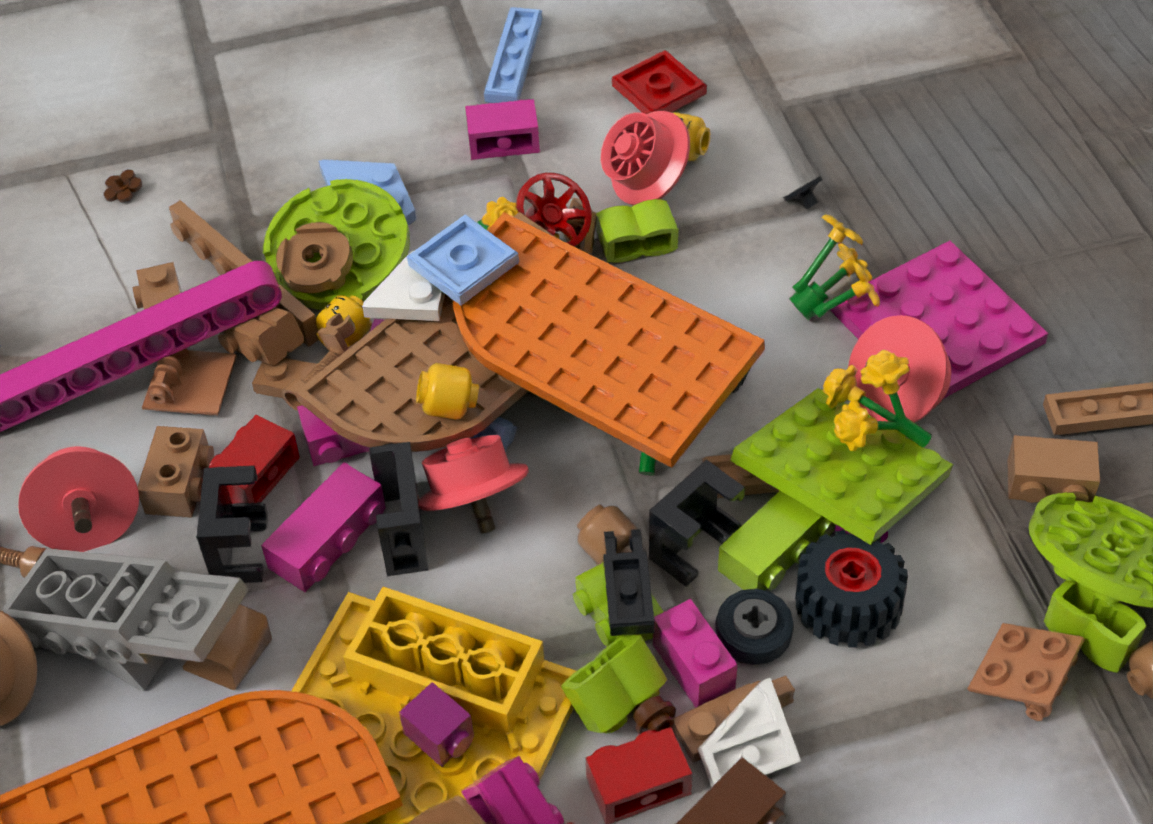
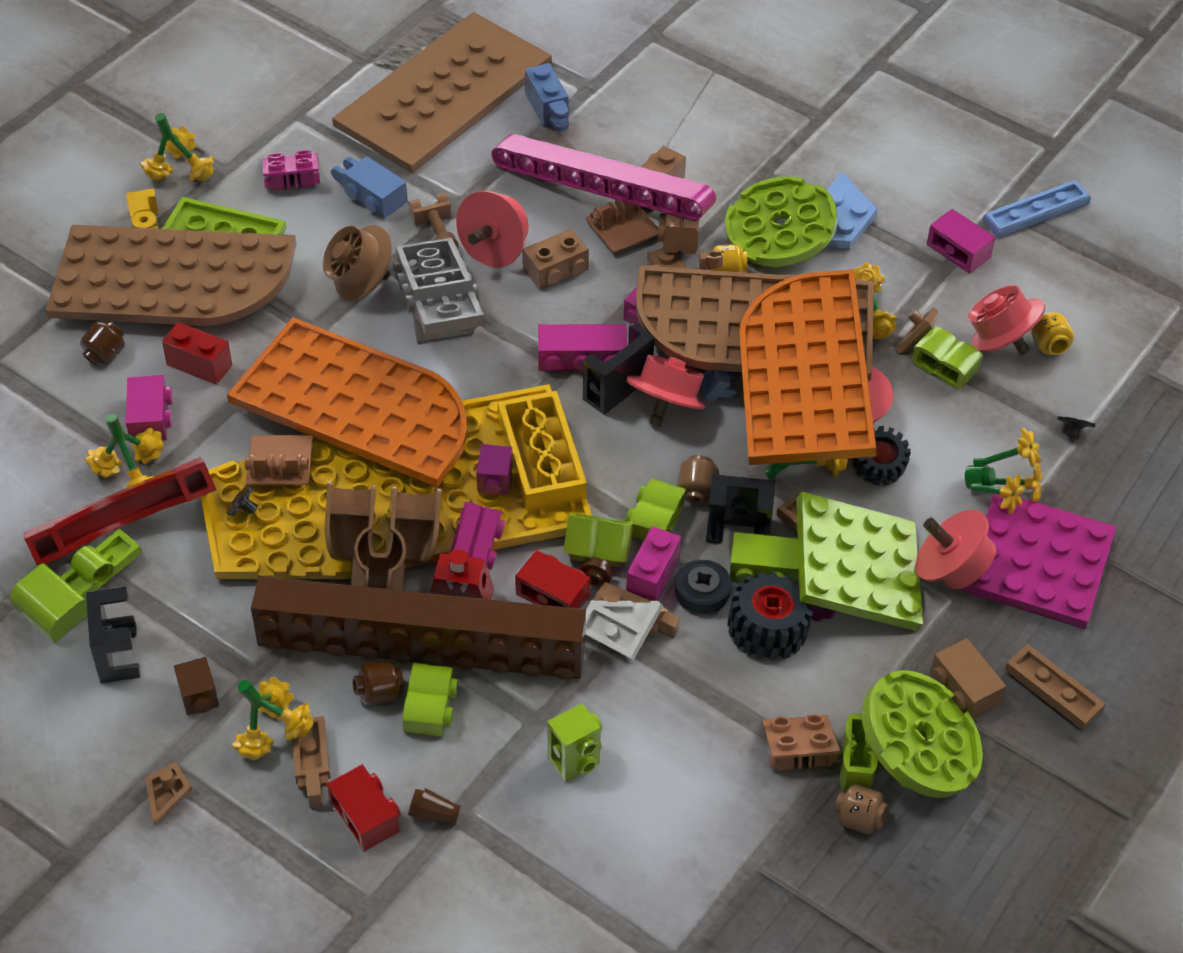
camera: 50 degrees right, 0 degrees up
(122, 186) = (730, 100): reddish brown plant -> none
(226, 257) = (719, 184): medium nougat plate -> none
(228, 524) = (536, 297): black panel -> none
(235, 649) = (471, 353): medium nougat piece -> none
(265, 446) = (593, 289): red brick -> none
(323, 274) = (758, 228): medium nougat plate -> none
(405, 296) = (761, 268): white wing -> none
(446, 391) = (699, 328): yellow head -> none
(463, 259) = (796, 272): light blue tile -> none
(551, 211) = (902, 301): red wheel -> none
(628, 587) = (661, 499): black hinge -> none
(659, 84) = (1090, 296): red plate -> none
(853, 421) = (915, 526): yellow plant -> none

